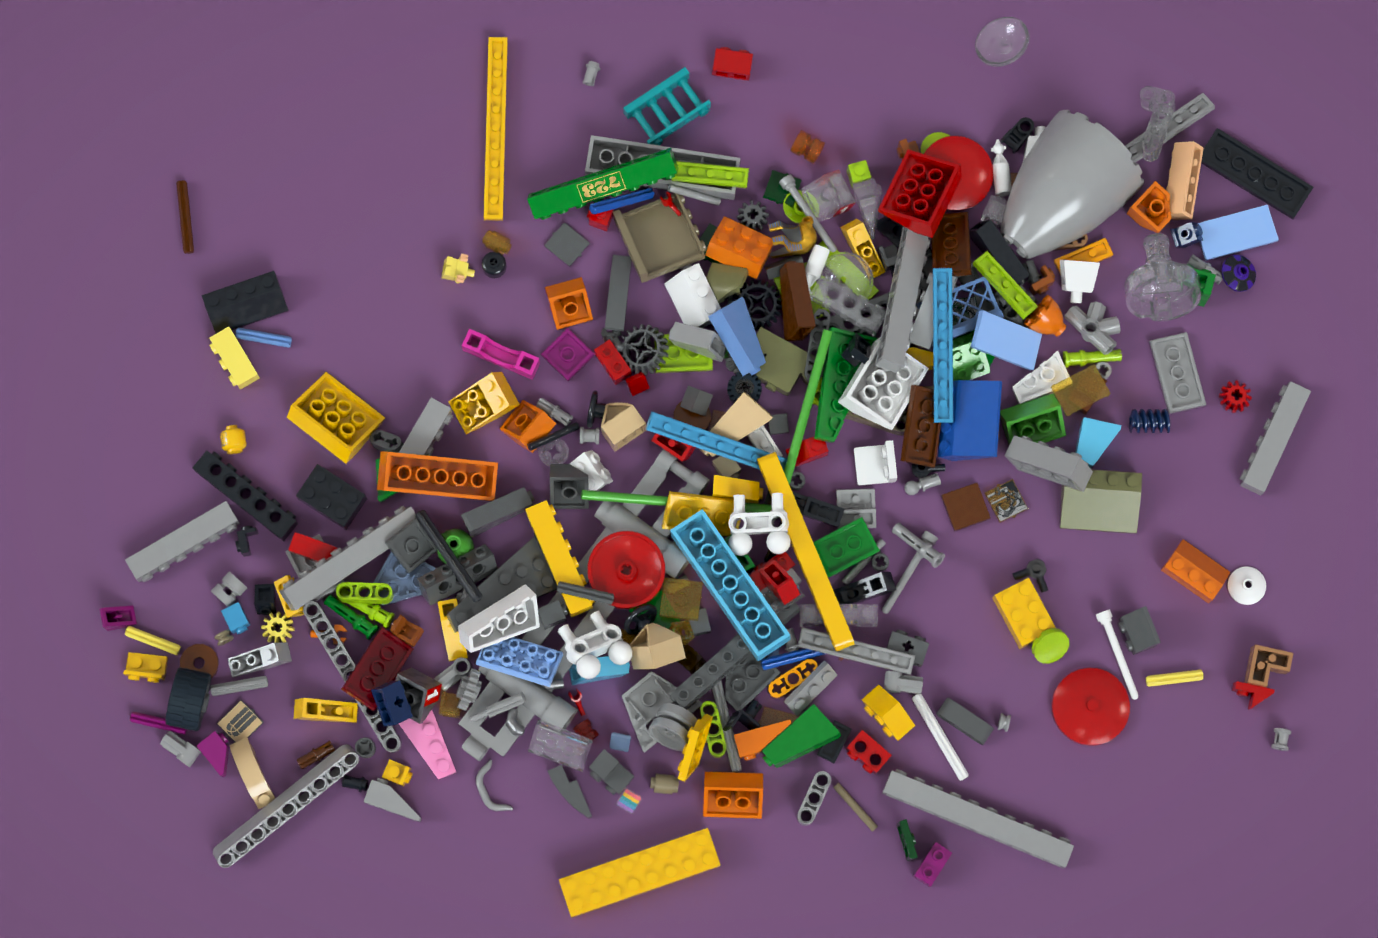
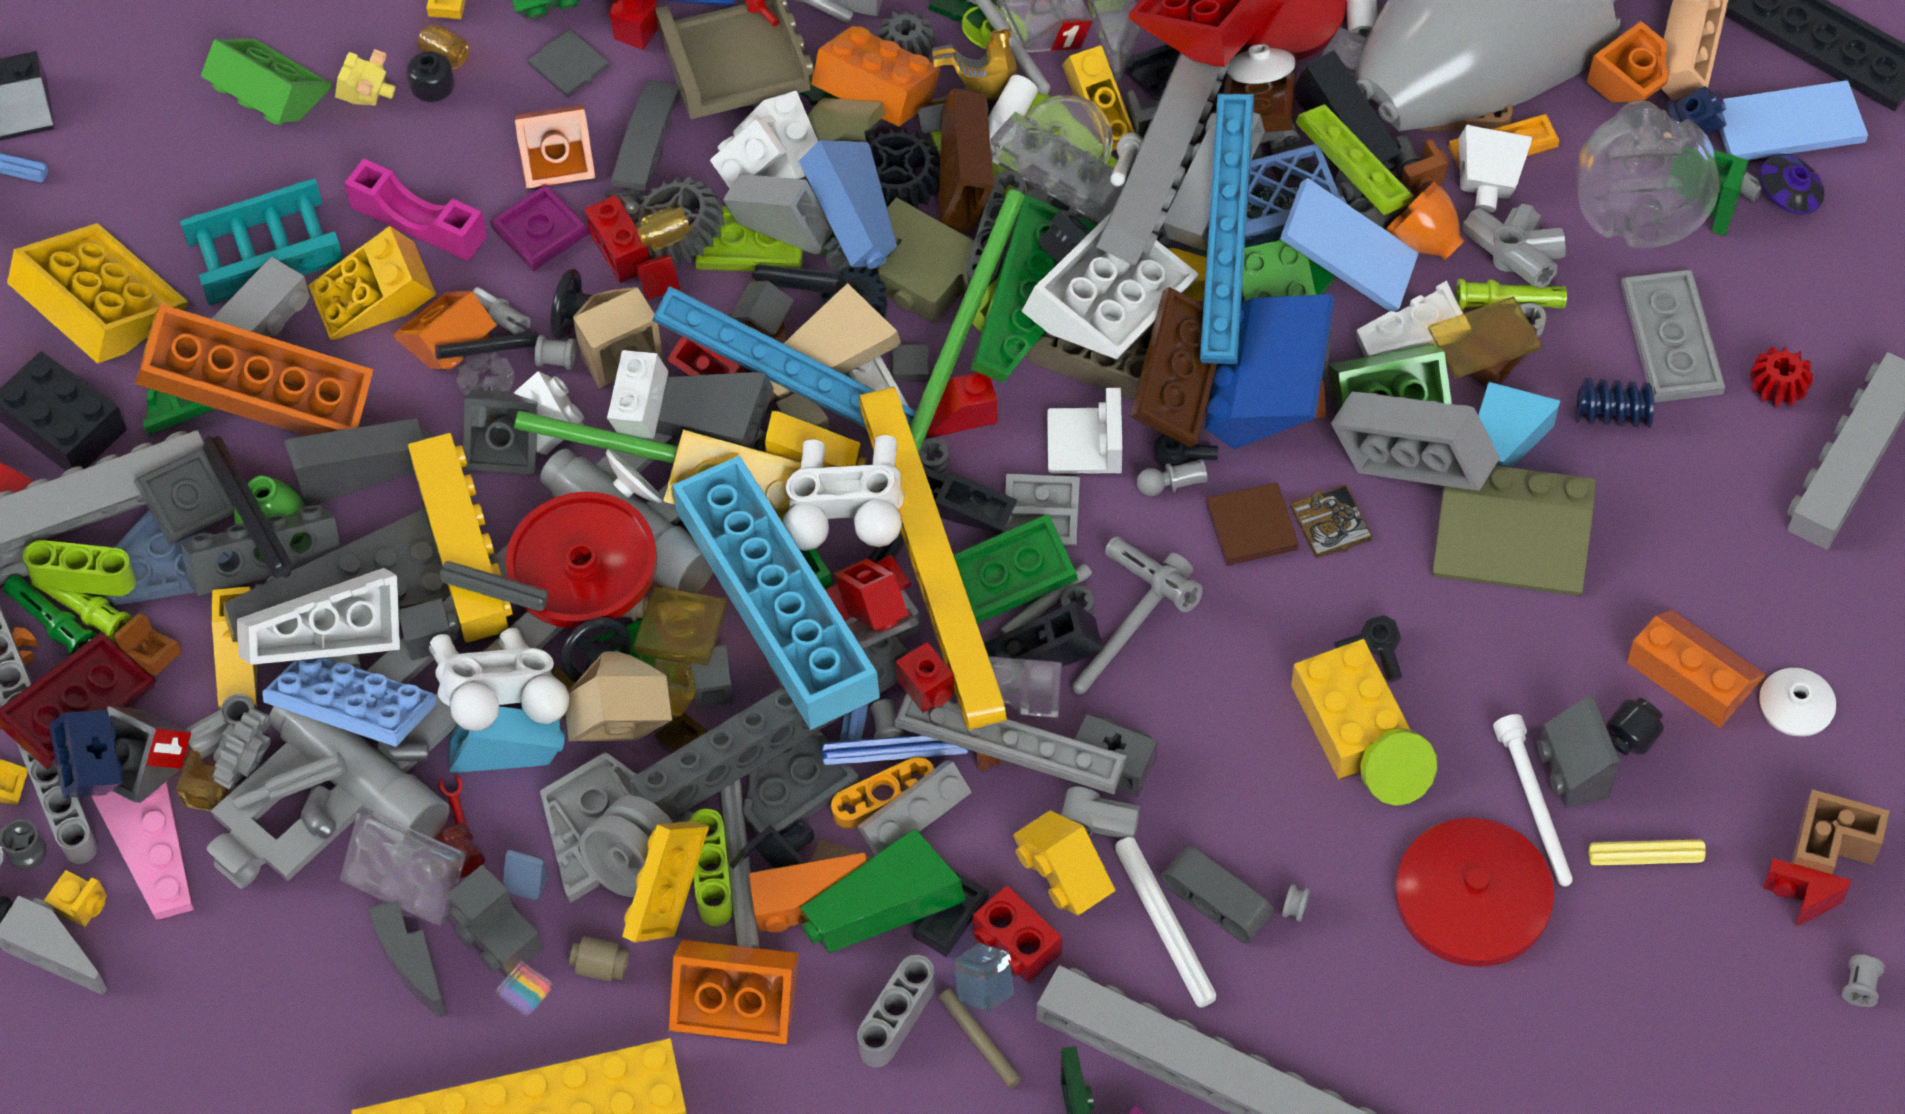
camera: 10 degrees right, 20 degrees down
(401, 272) = (263, 79): none -> bright green slope
(418, 397) = (304, 257): none -> teal fence
(483, 792) = (238, 948): light grey animal -> none
(640, 363) = (663, 228): none -> clear yellow brick
(644, 475) = (638, 394): none -> white brick
(646, 519) = (629, 480): none -> white dish
(676, 304) = (749, 151): none -> white bracket
(678, 473) = (716, 406): none -> dark grey slope
(714, 381) = (799, 278): none -> black axle
(811, 625) = (925, 677): none -> red brick
(854, 776) = (984, 977): none -> clear light blue panel
(882, 279) = (1126, 150): none -> white piece
(952, 224) = (1261, 65): none -> white dish
(1166, 610) = (1635, 726): none -> black head

